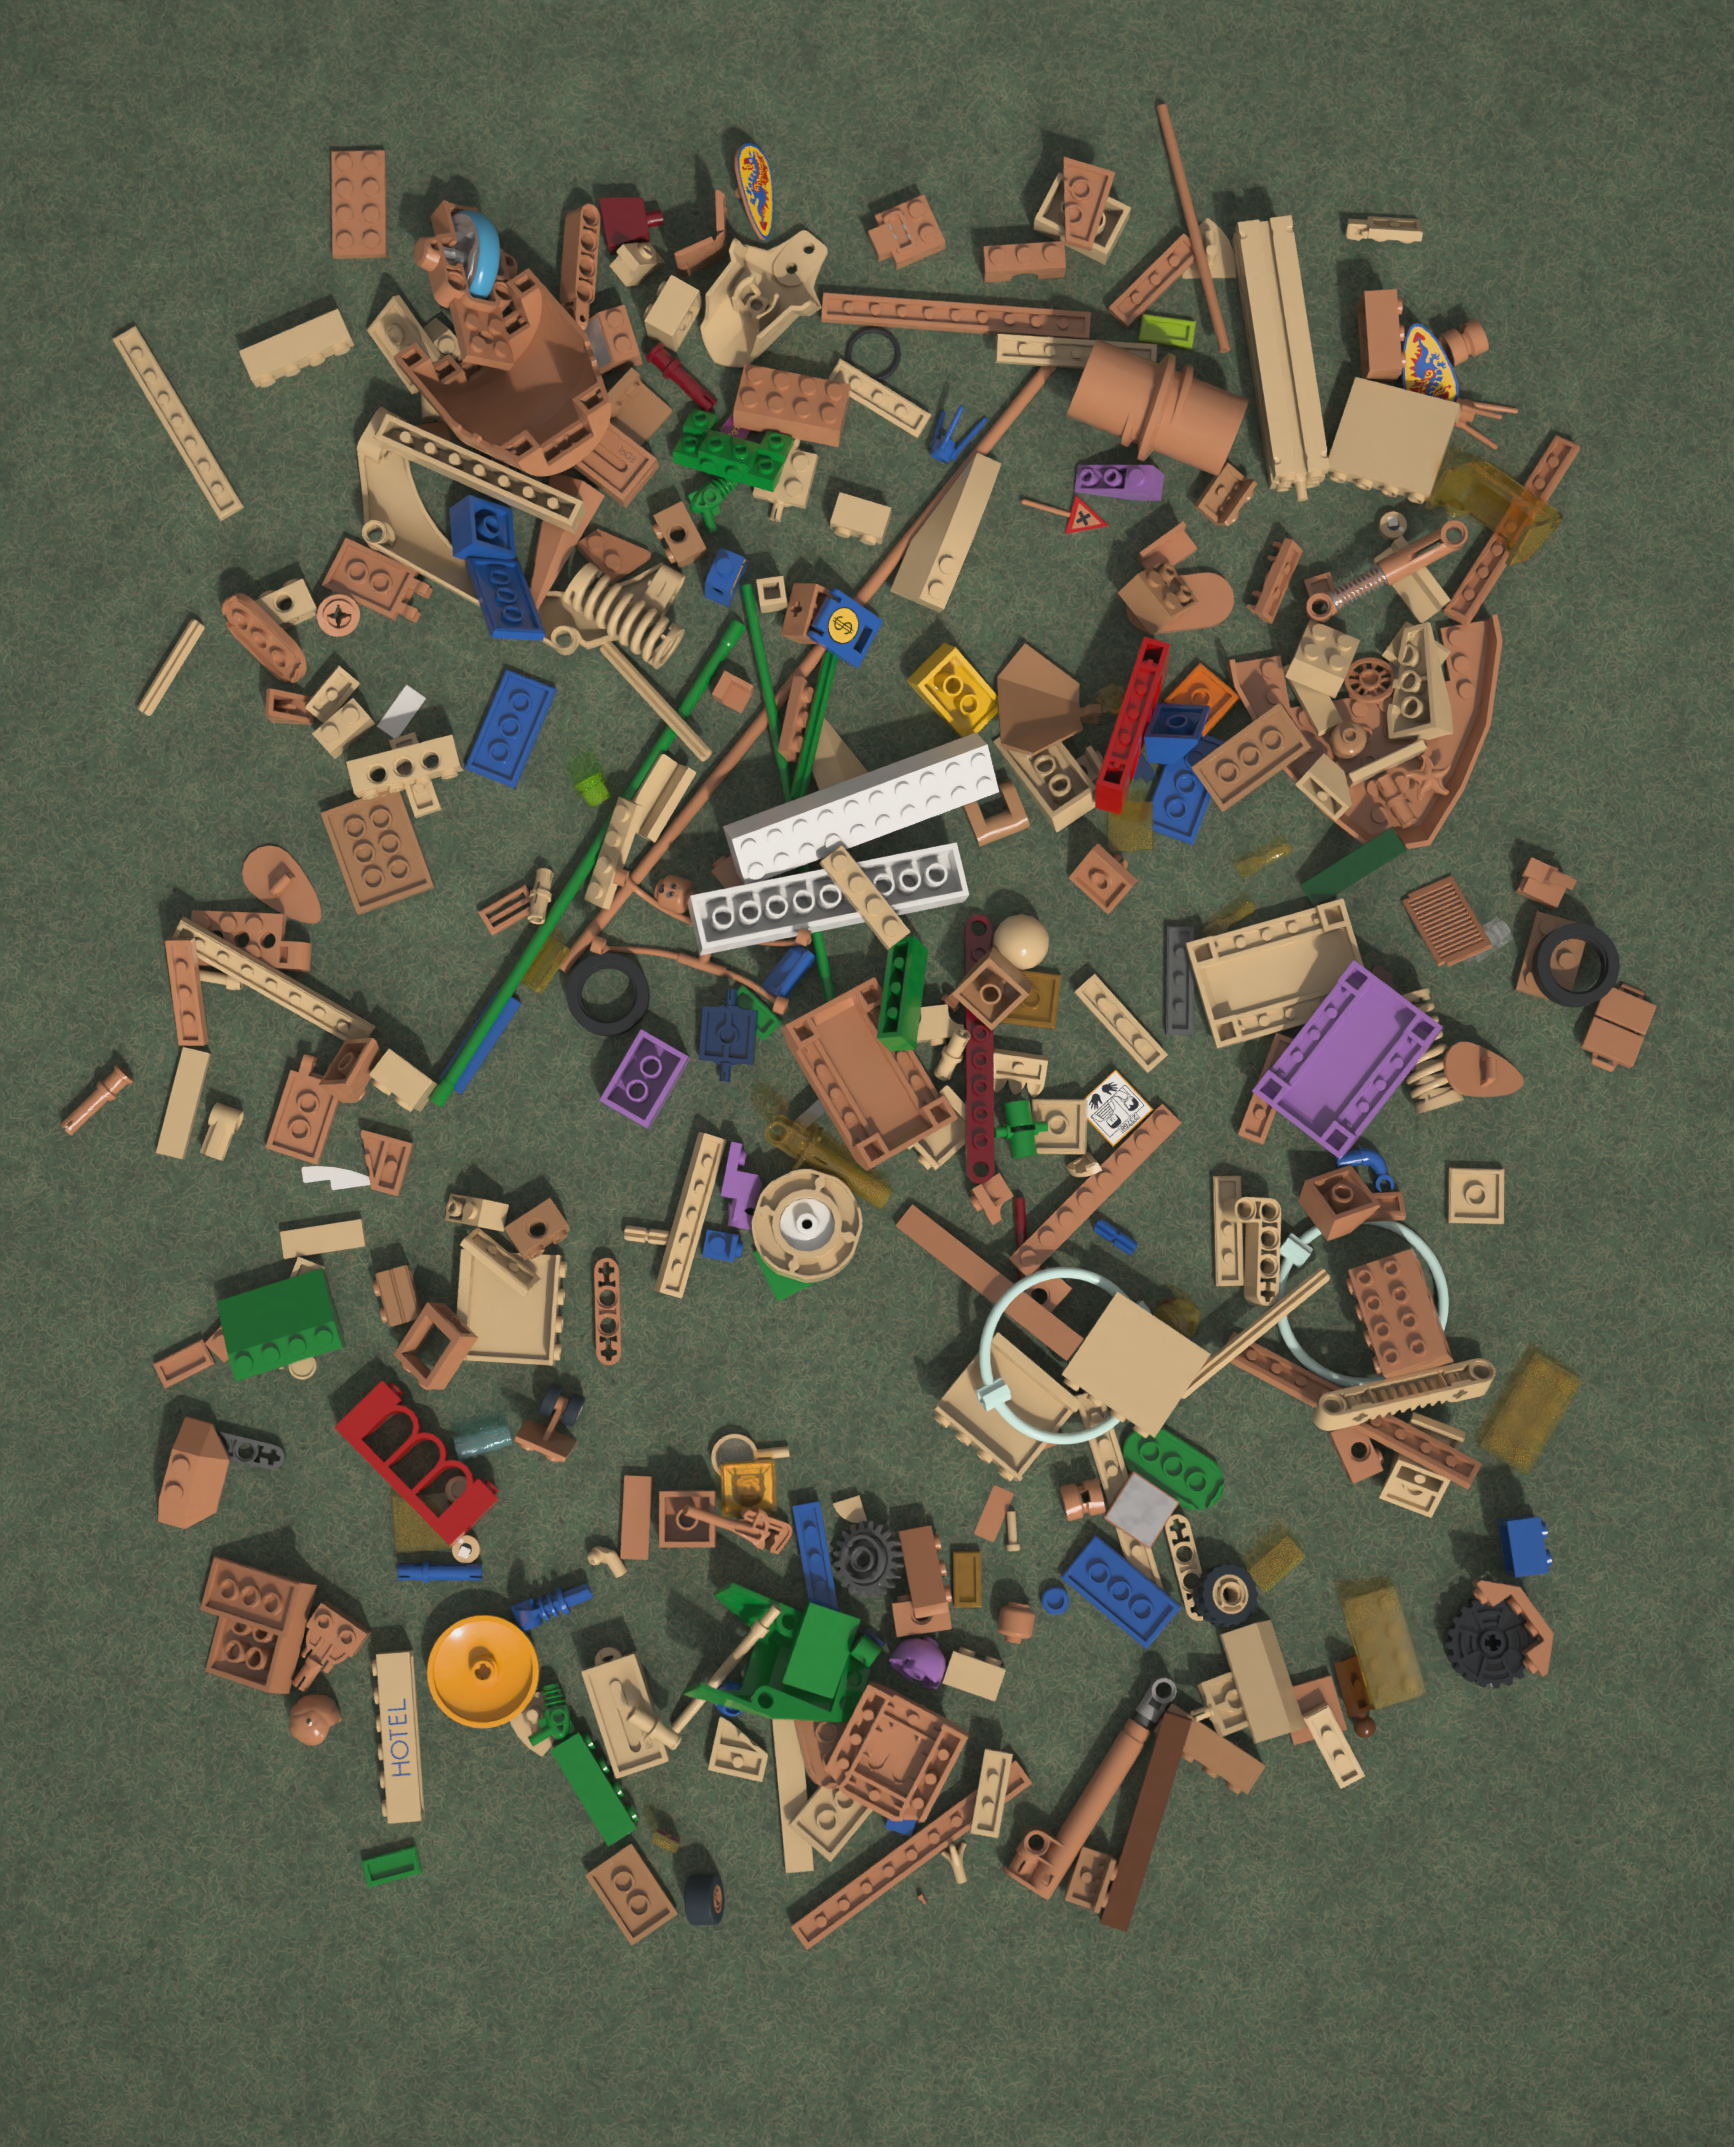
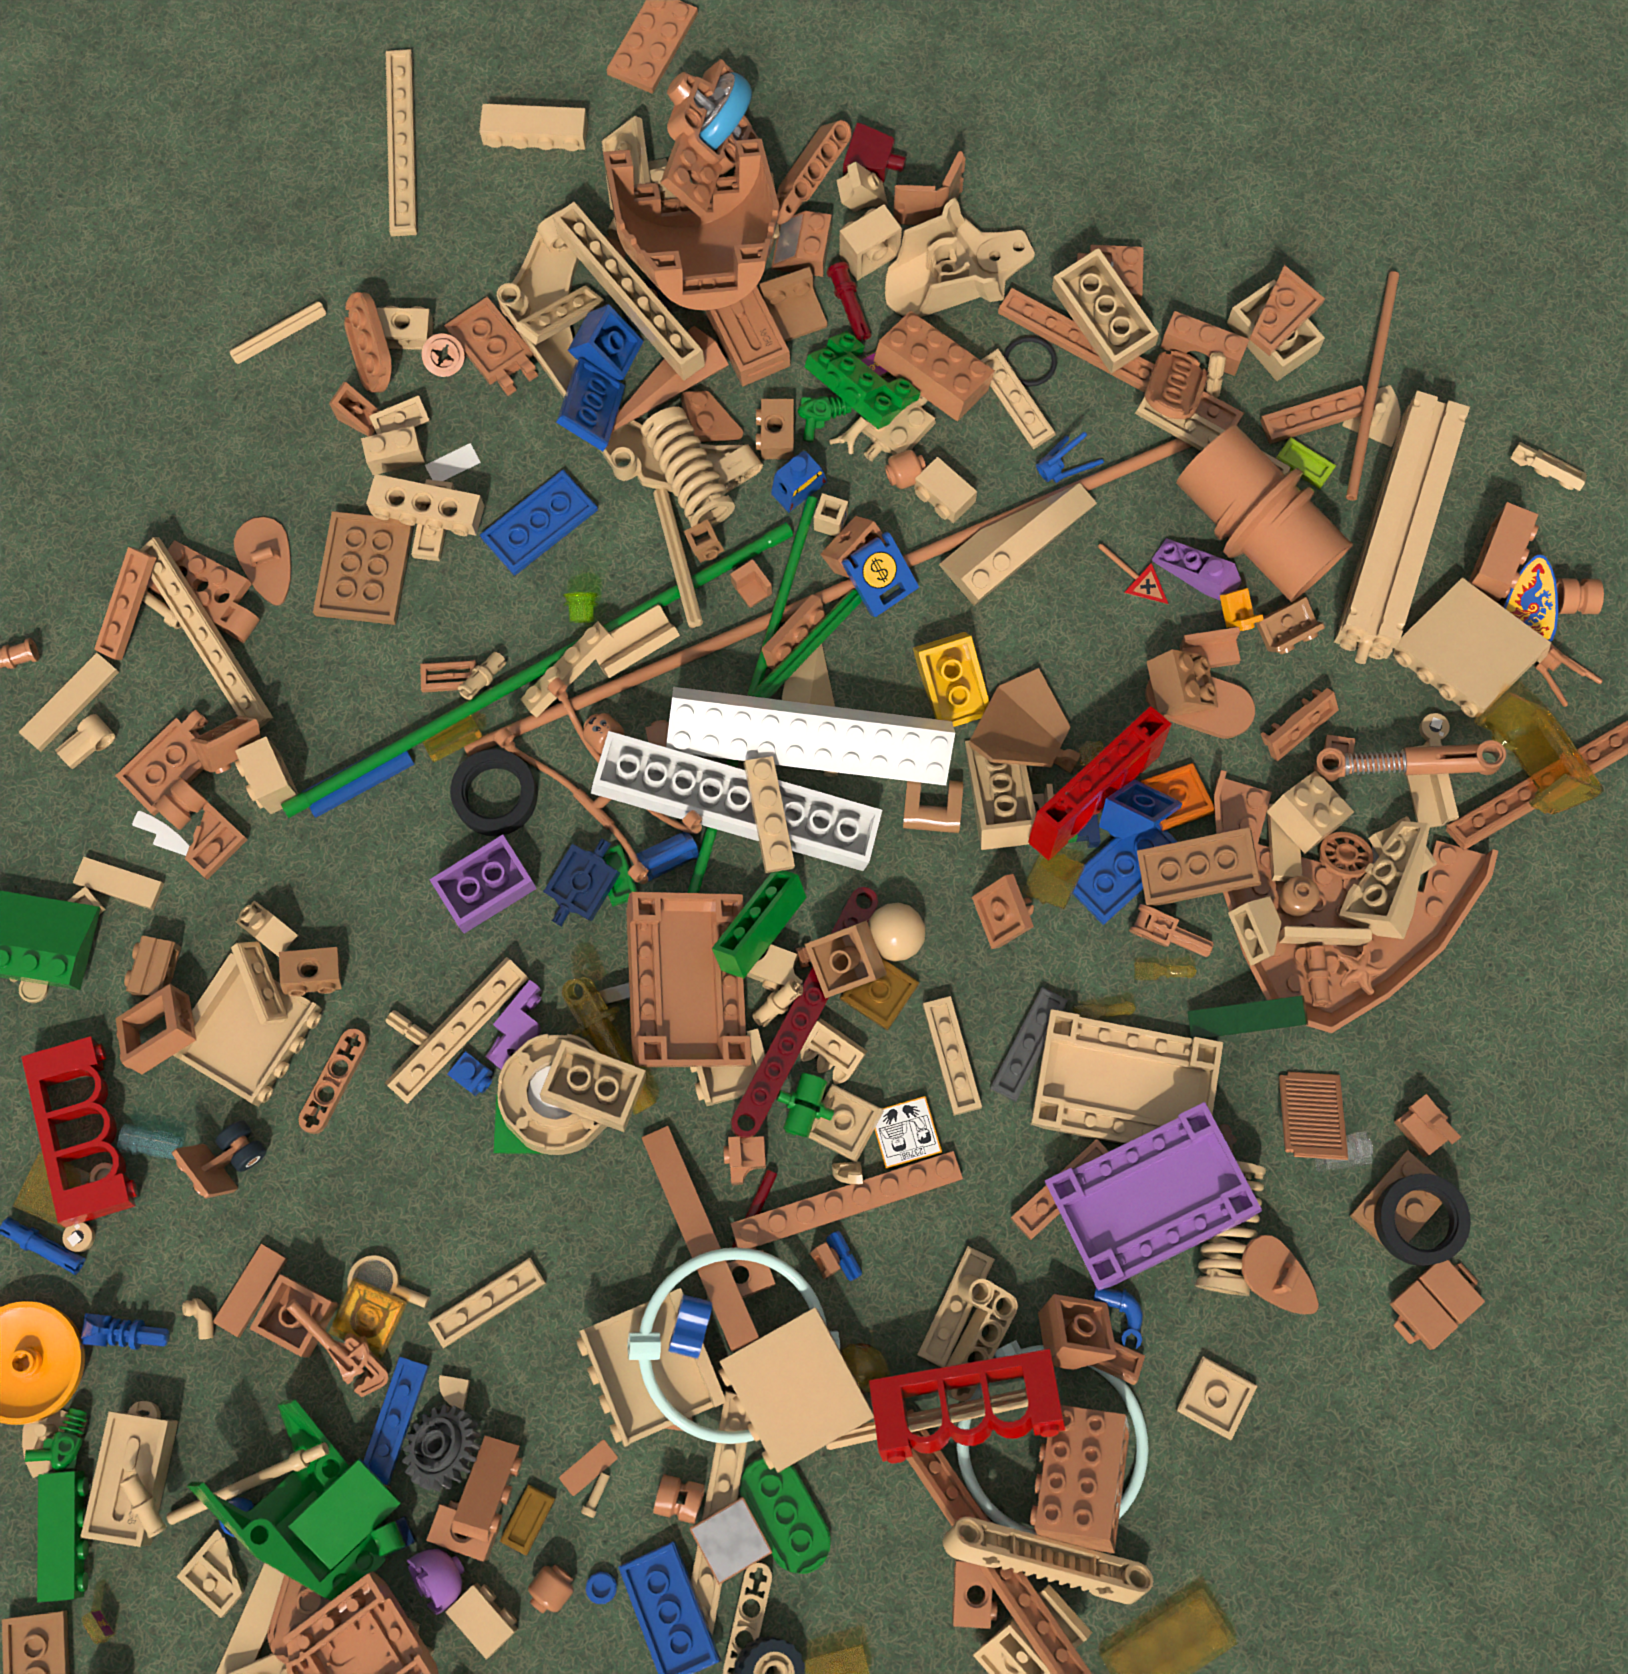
camera: 25 degrees right, 10 degrees down
(339, 1143) = (180, 803): none -> nougat wheel
(427, 525) = (559, 315): none -> tan tile
(676, 676) = (706, 547): none -> medium nougat brick
(749, 507) = (851, 434): none -> tan bar
(755, 187) = (997, 175): shield -> none
(815, 516) = (904, 468): none -> nougat head
(839, 1204) = (593, 1085): none -> tan brick
(839, 1426) = (486, 1302): none -> tan tile
(922, 279) = (1104, 310): none -> tan brick
(1019, 318) = (1176, 385): none -> nougat tile
(1023, 1359) = (690, 1326): none -> blue axle
(1048, 286) = (1215, 370): none -> tan piece
(1102, 1247) = (826, 1260): none -> nougat plate
(1175, 504) = (1238, 610): none -> light orange bracket
(1223, 1347) = (890, 1411): none -> red fence
(1246, 824) = (1163, 929): none -> nougat connector

